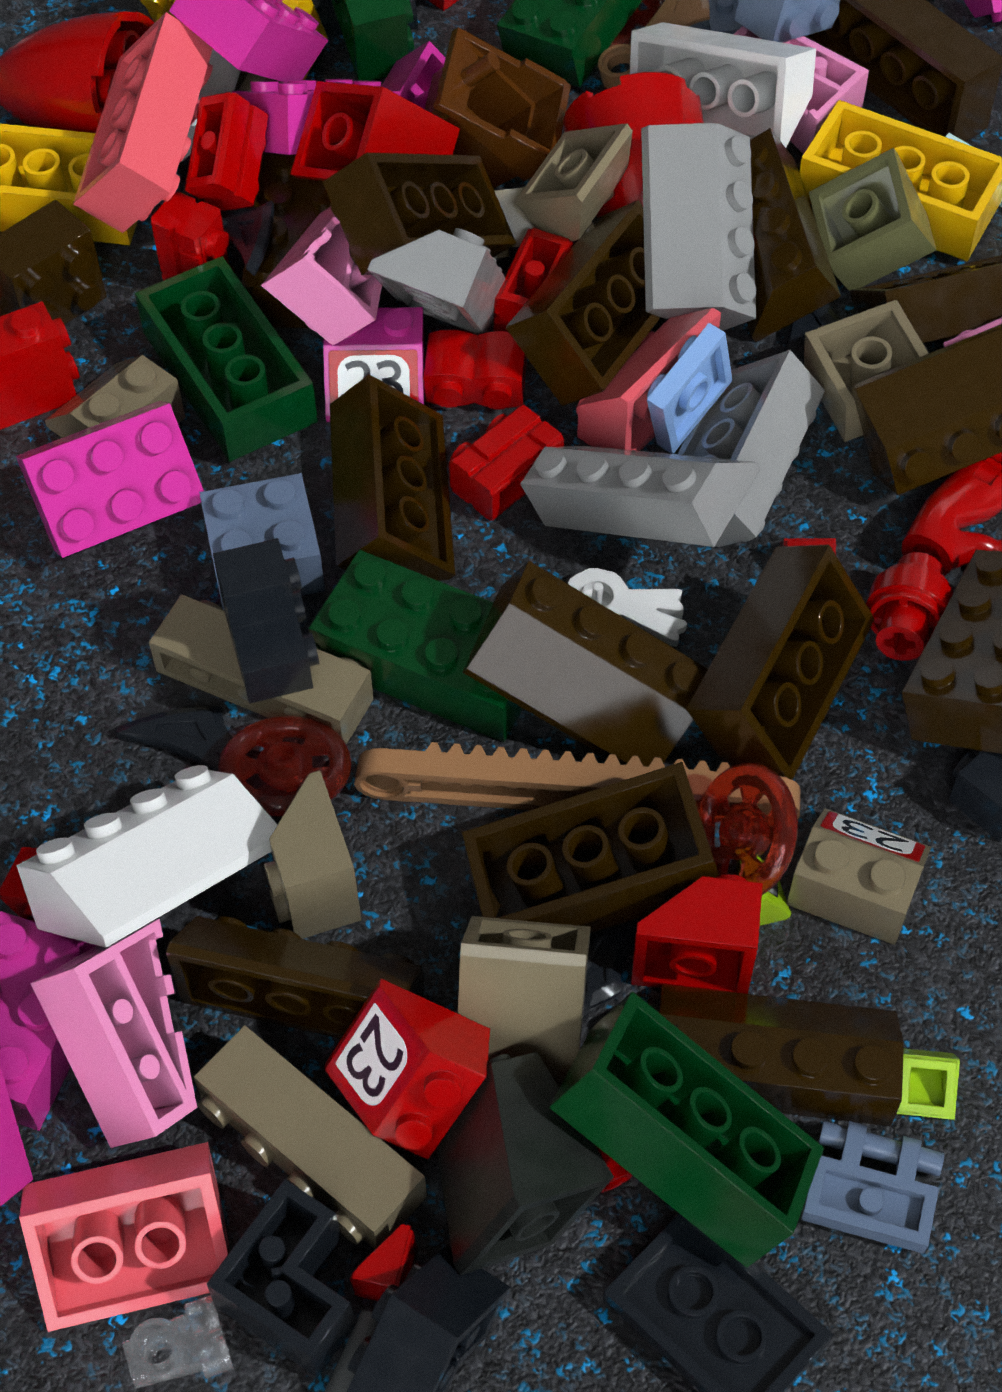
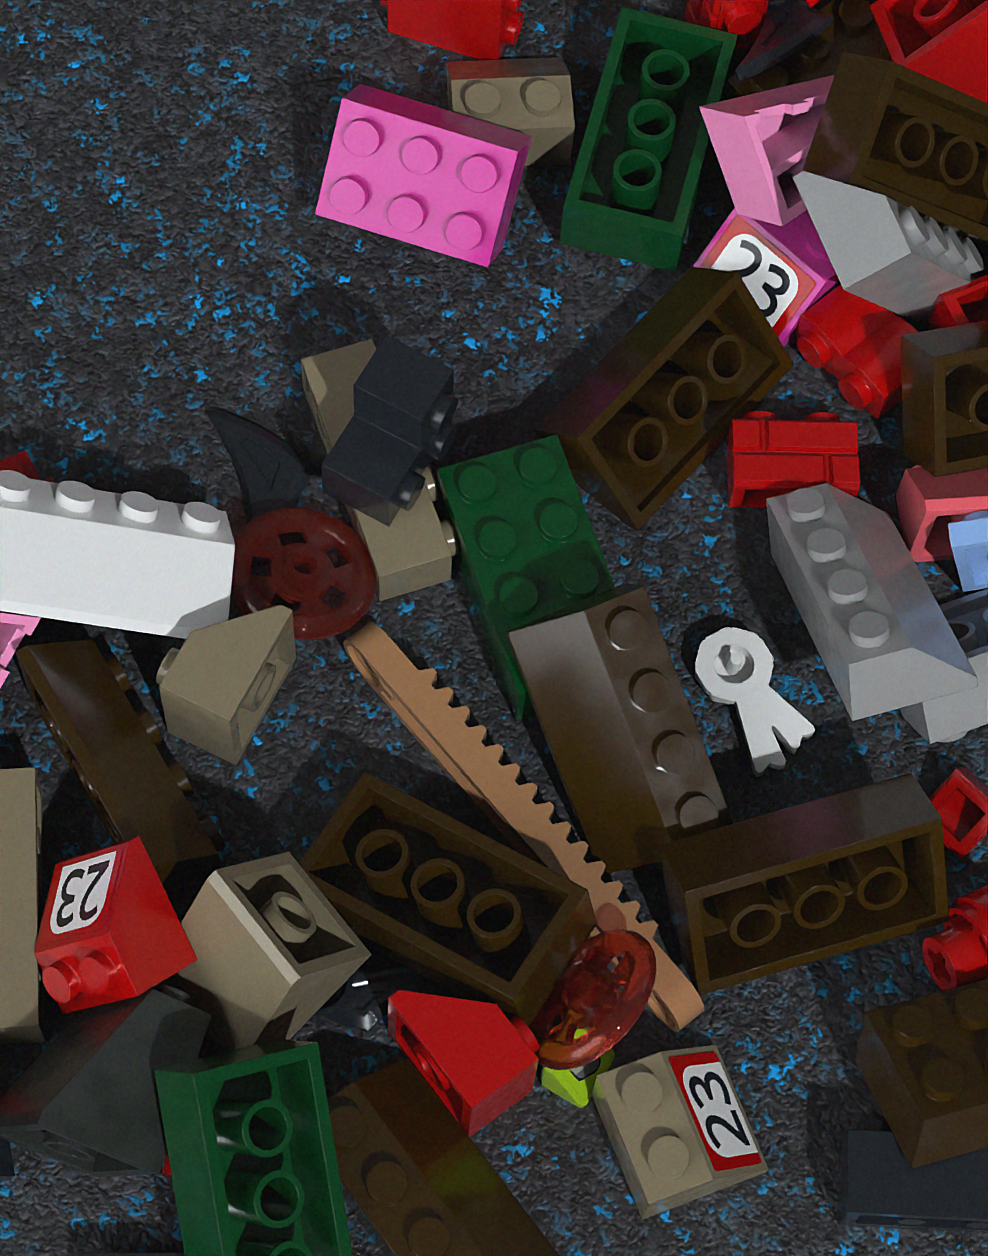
camera: 40 degrees right, 10 degrees up
(265, 512) = (503, 344): sand blue brick -> none

